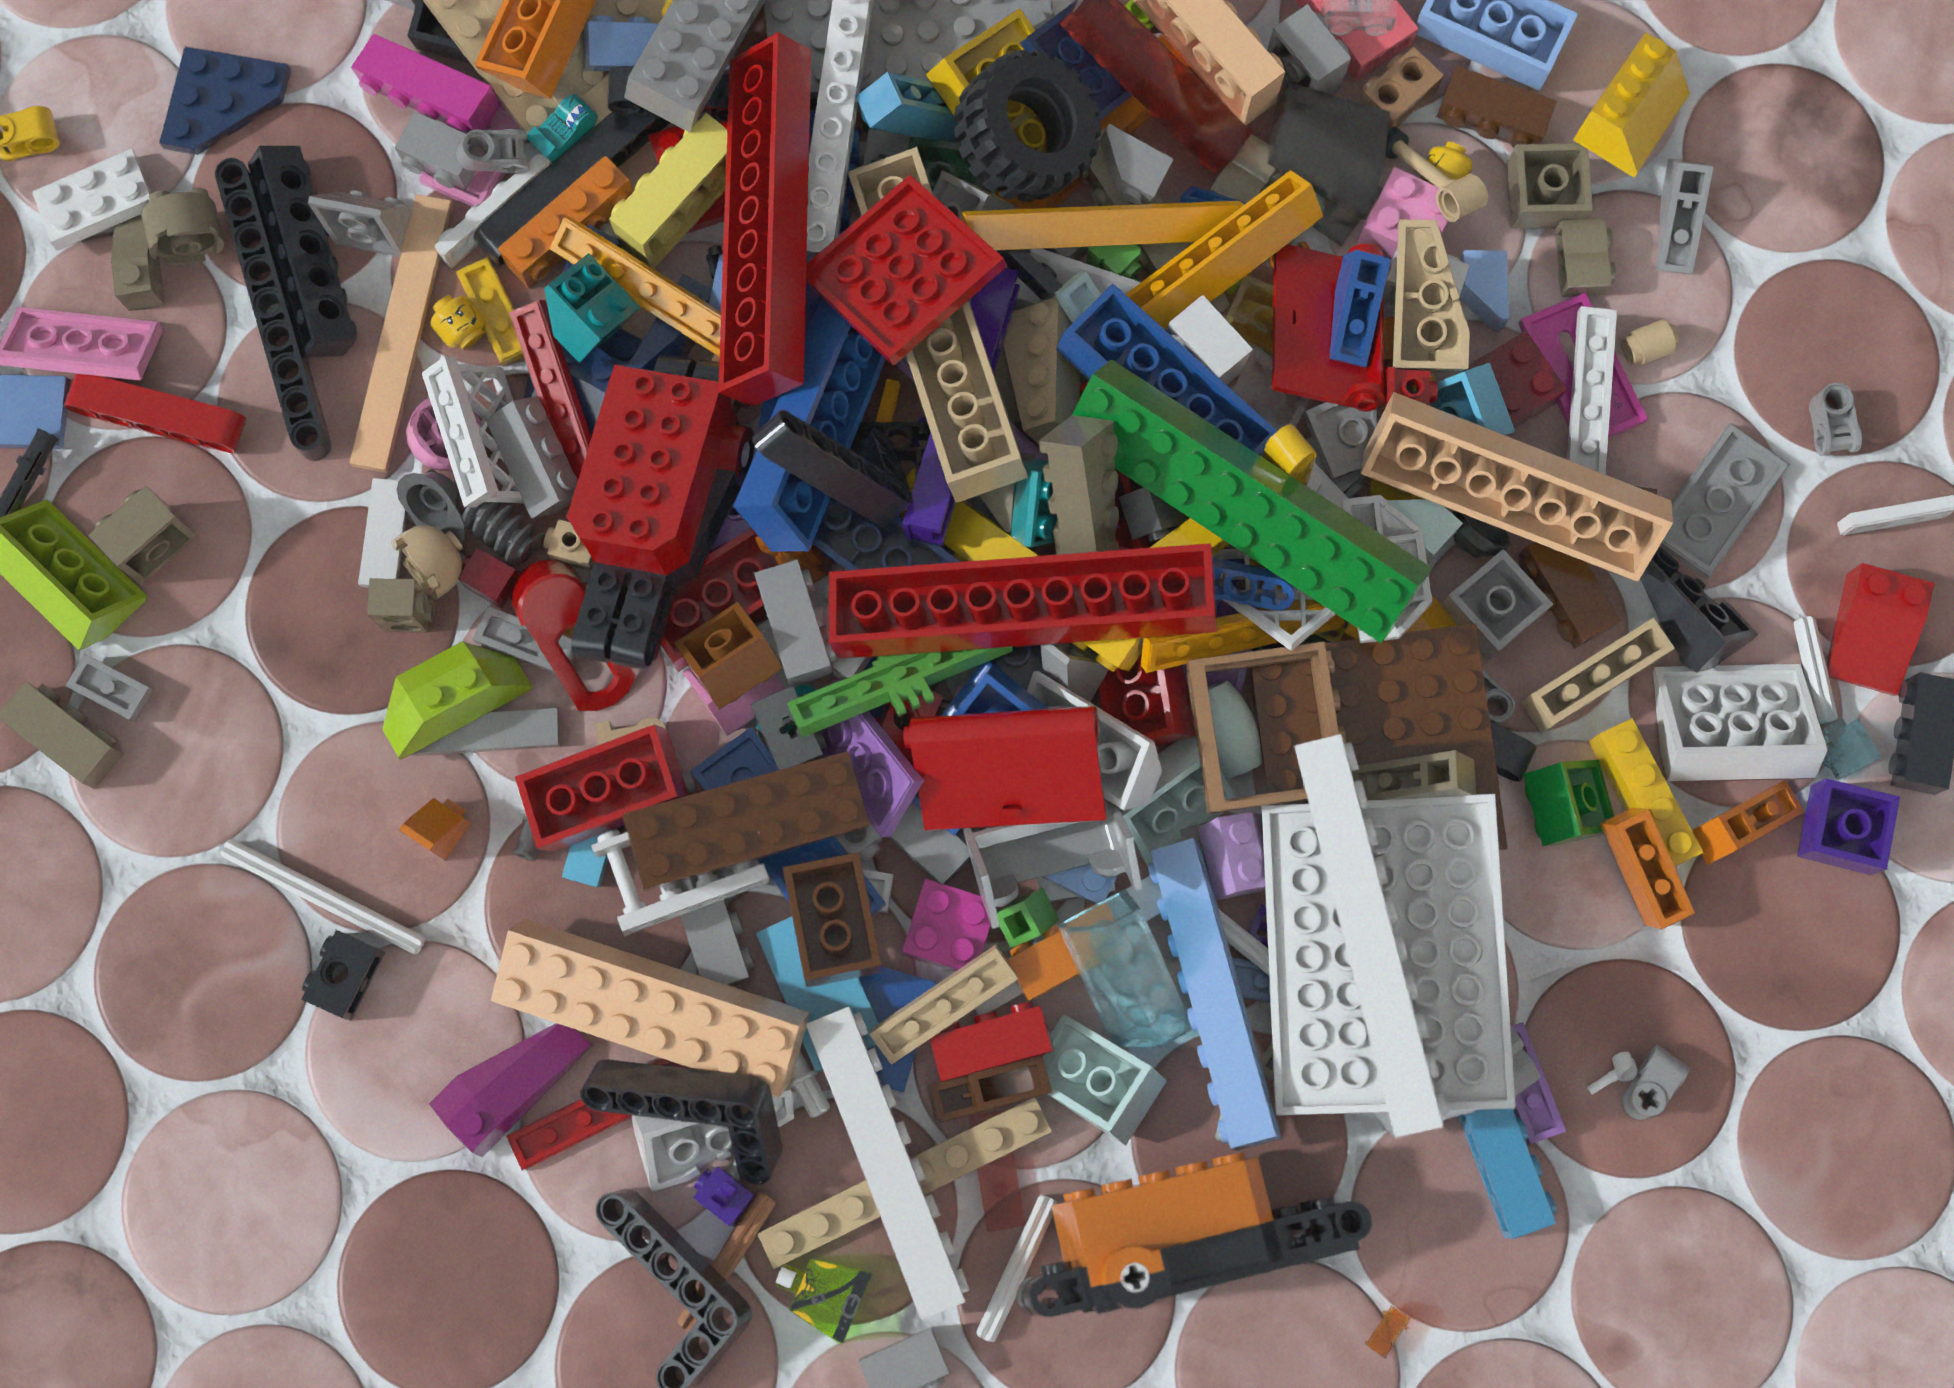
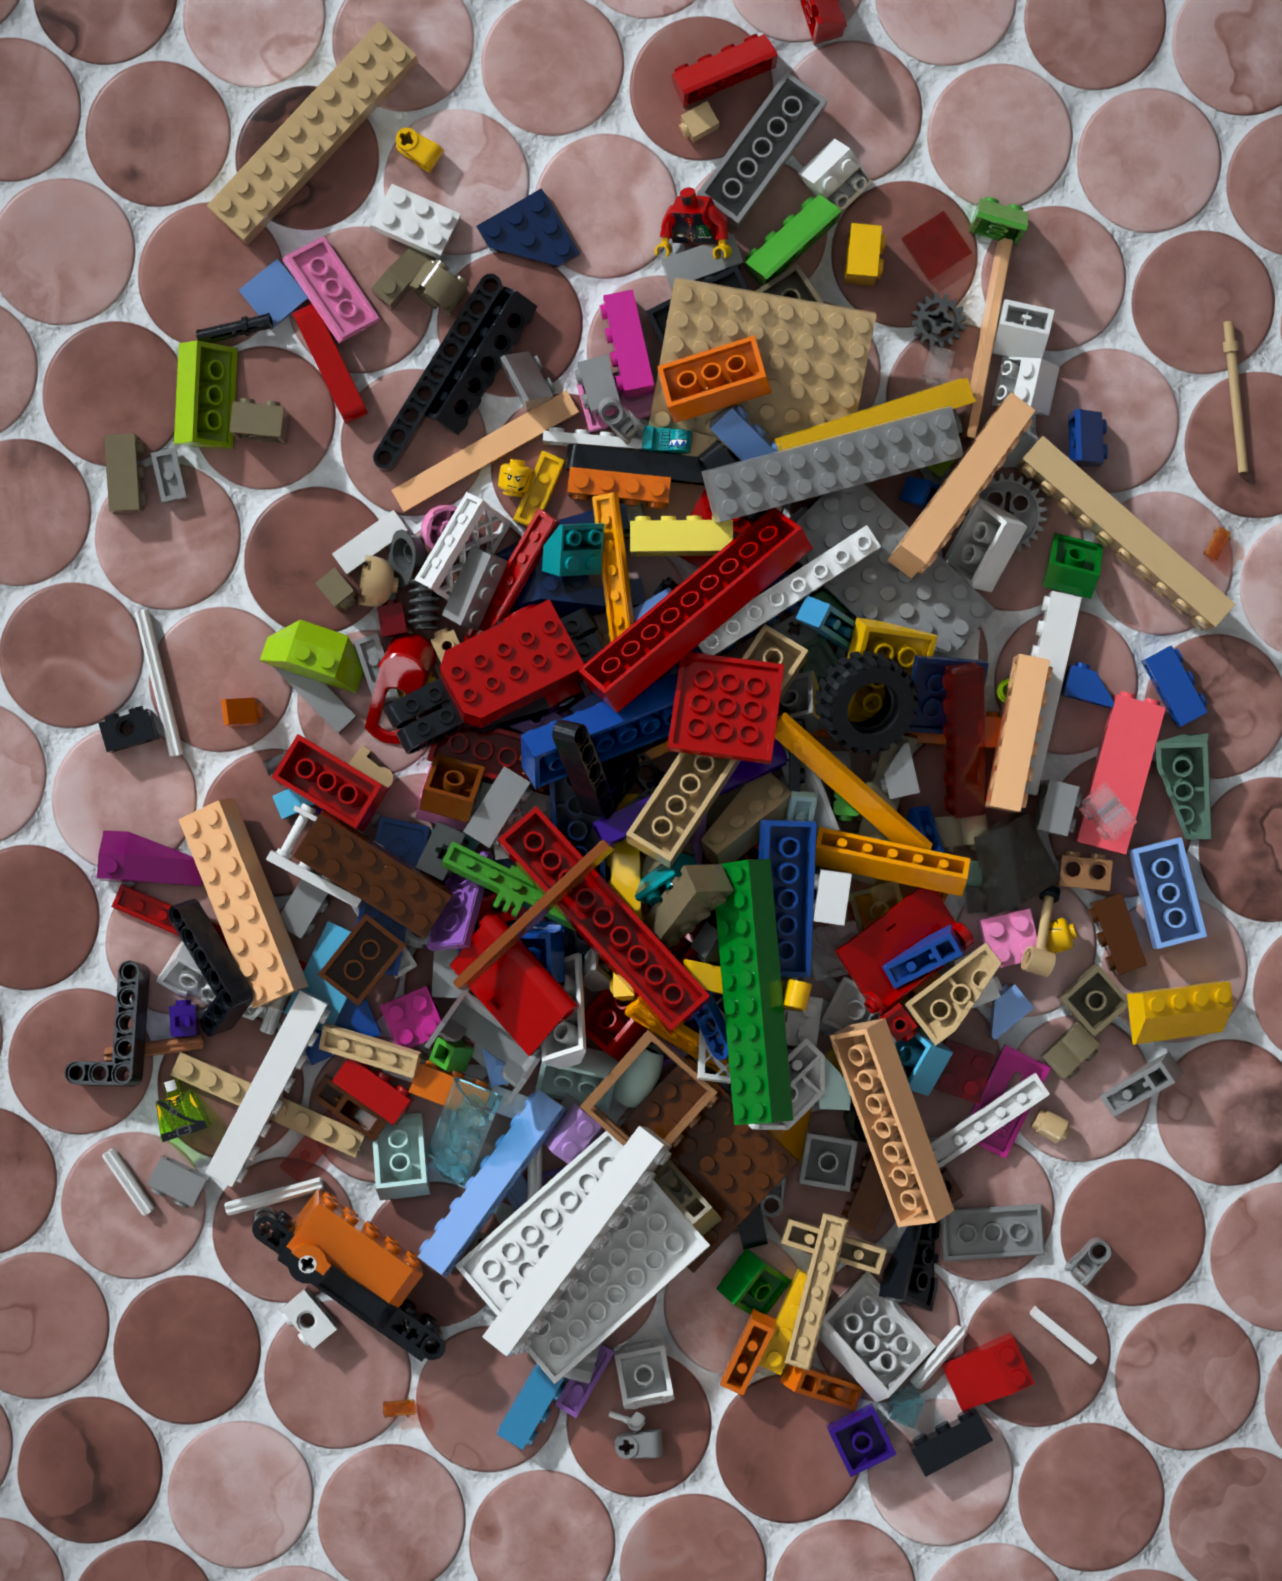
camera: 50 degrees right, 10 degrees up
(949, 665) = (533, 915): none -> dark orange tile
(1219, 1344) = (307, 1303): none -> white brick
(1577, 1010) = (644, 1374): none -> white slope
(1641, 729) = (816, 1291): none -> tan tile

